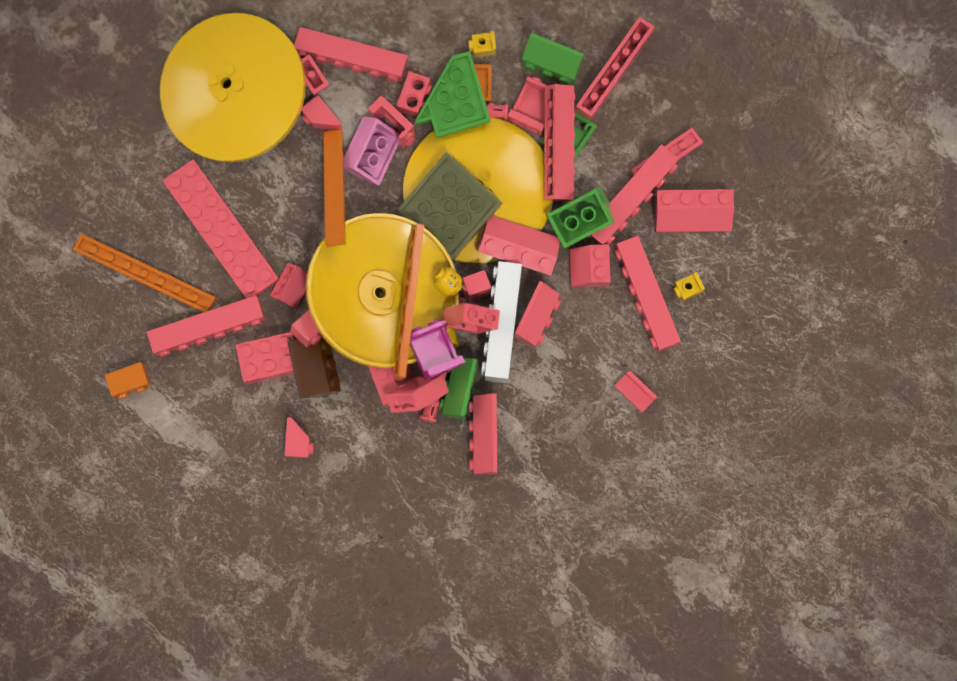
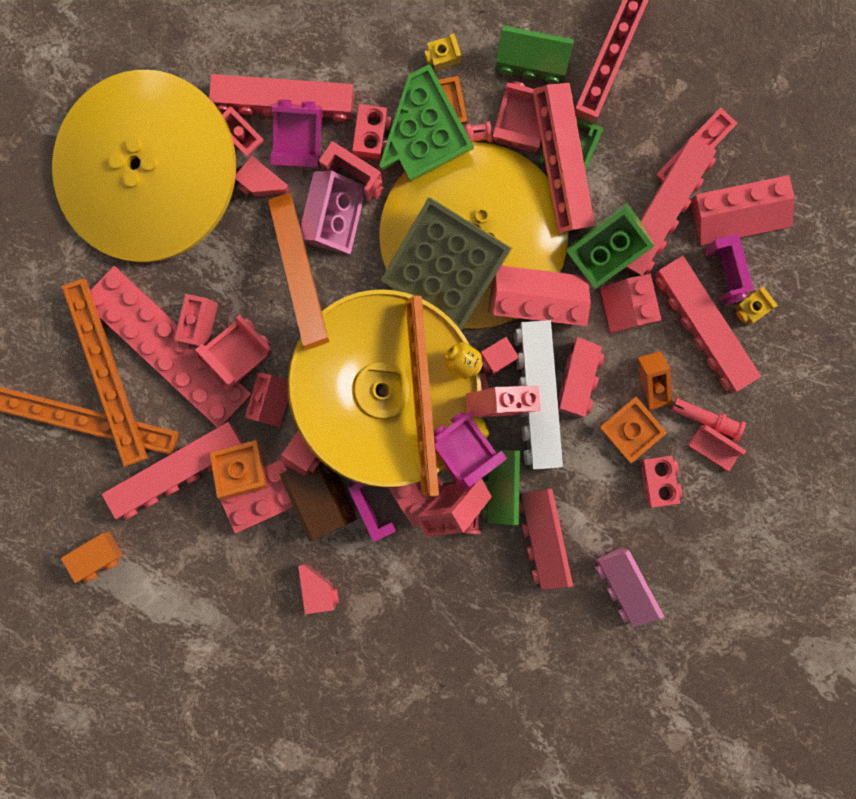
camera: 15 degrees left, 5 degrees up
(168, 239) = (104, 372): none -> orange tile
(248, 213) = (196, 320): none -> coral panel
(256, 332) = (238, 470): none -> orange plate
(272, 243) = (234, 352): none -> coral panel
(355, 403) = (367, 514): none -> dark pink panel
(356, 85) = (296, 134): none -> dark pink panel
(542, 485) = (628, 587): none -> bright pink slope
(572, 364) = (632, 430): none -> orange plate
(581, 408) = (653, 482): none -> coral brick
(598, 329) = (655, 380): none -> orange slope
(642, 372) = (719, 423): none -> coral pin
(673, 235) = (734, 267): none -> dark pink panel

